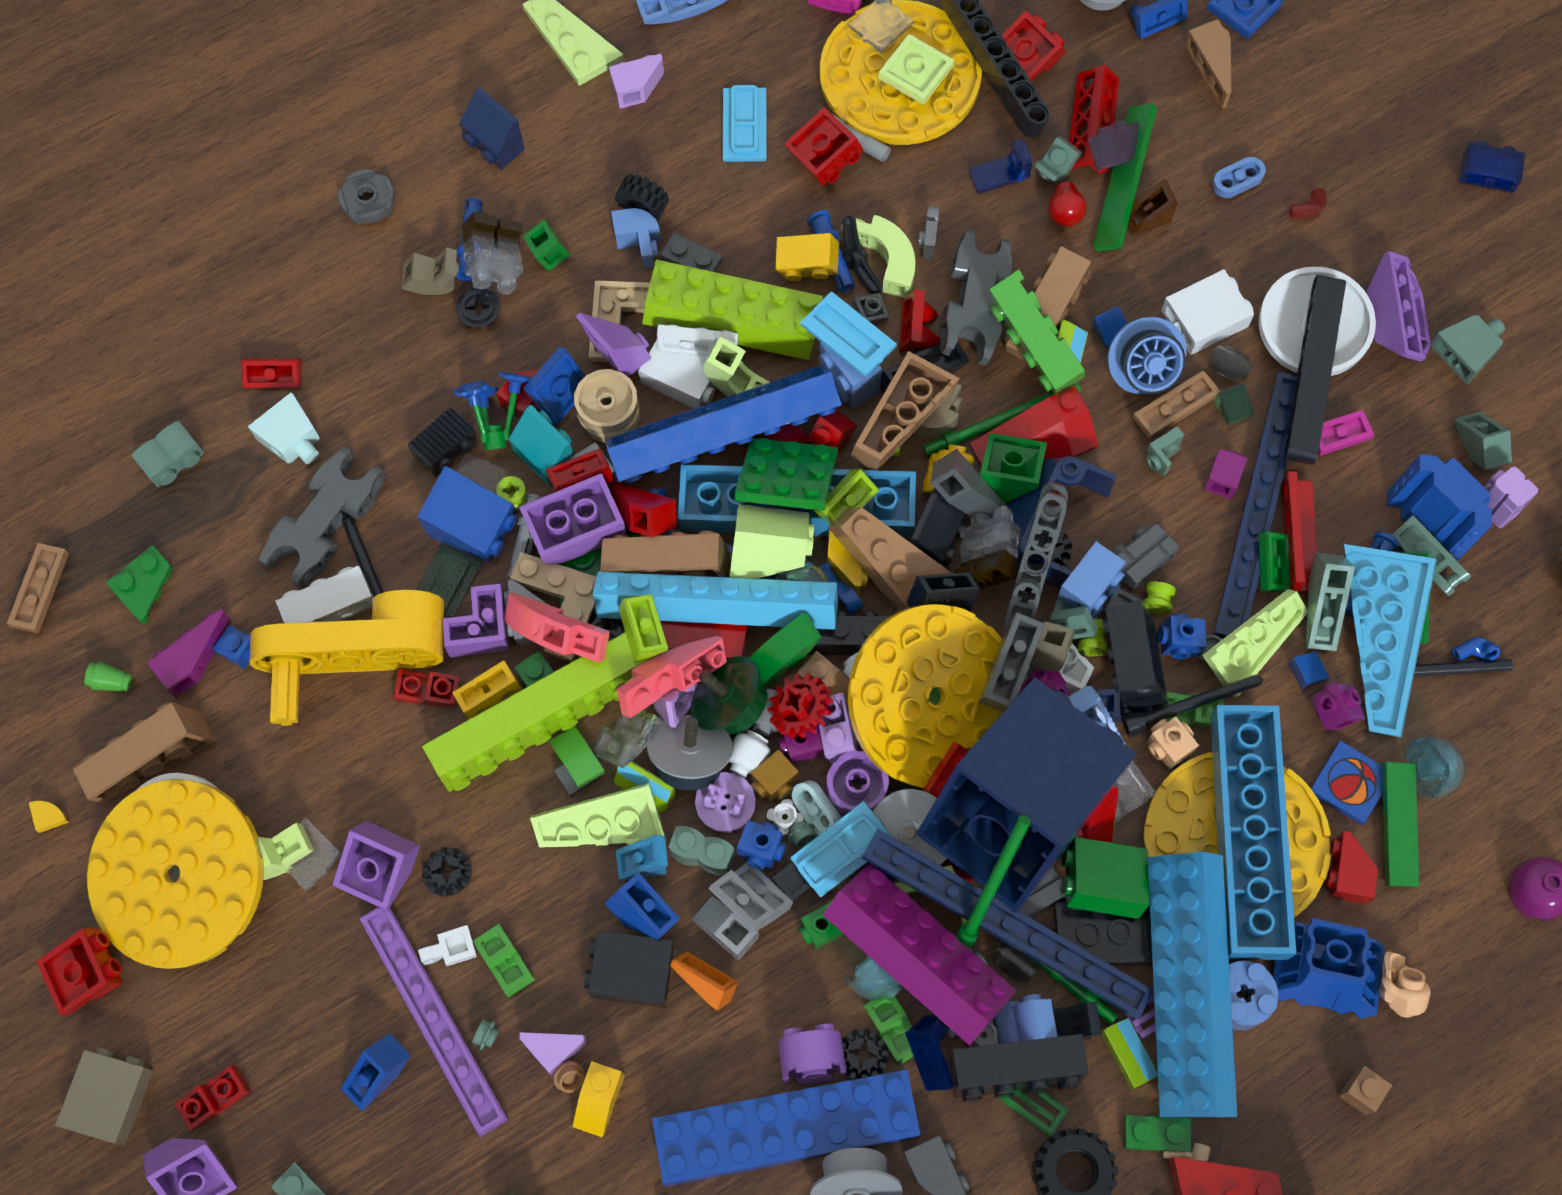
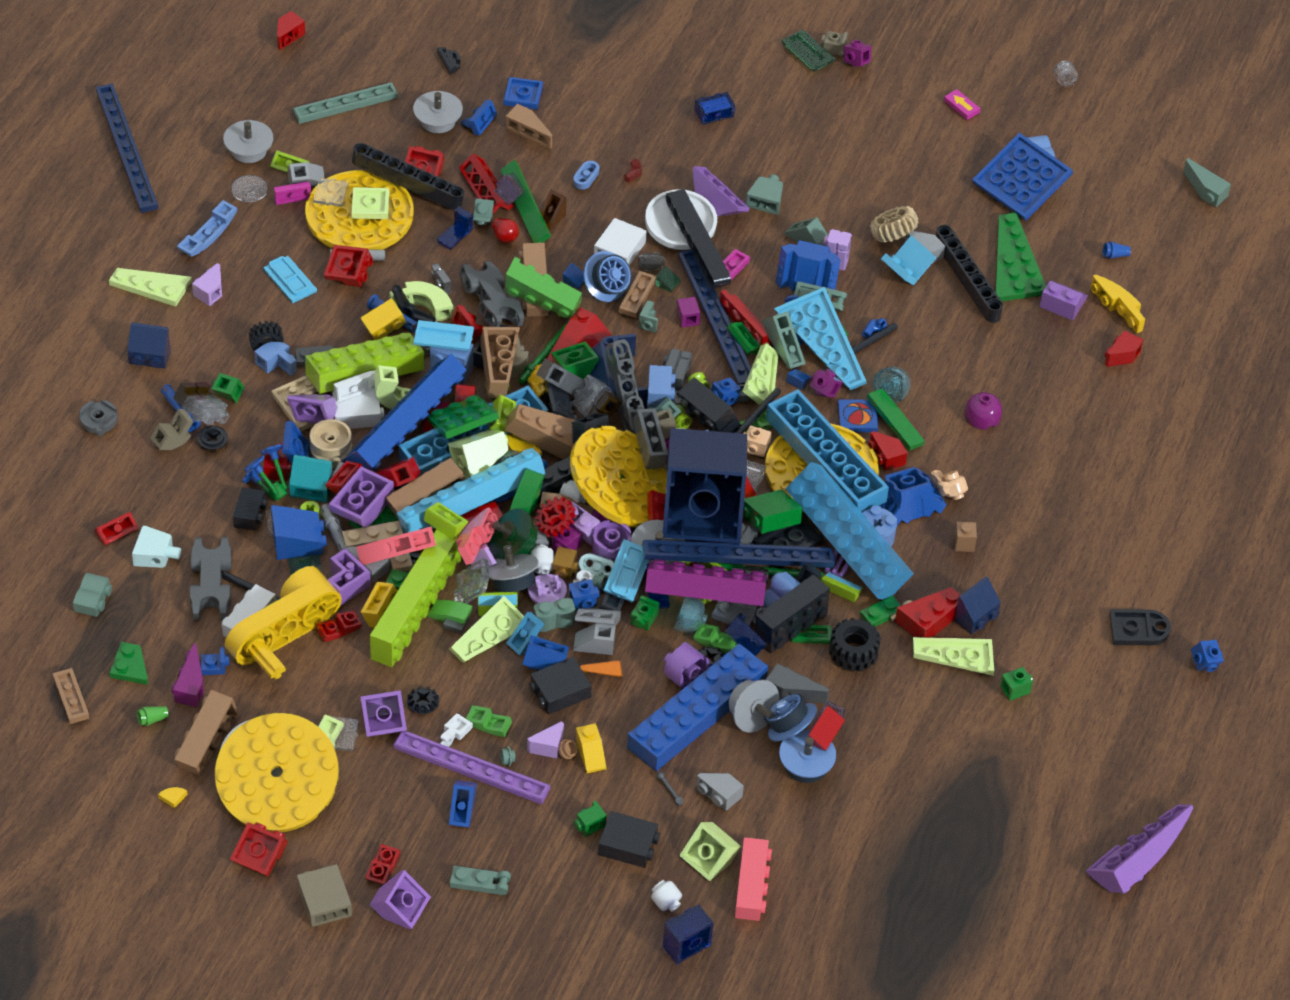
camera: 40 degrees left, 20 degrees down
(969, 931) = (721, 520): green bar -> none

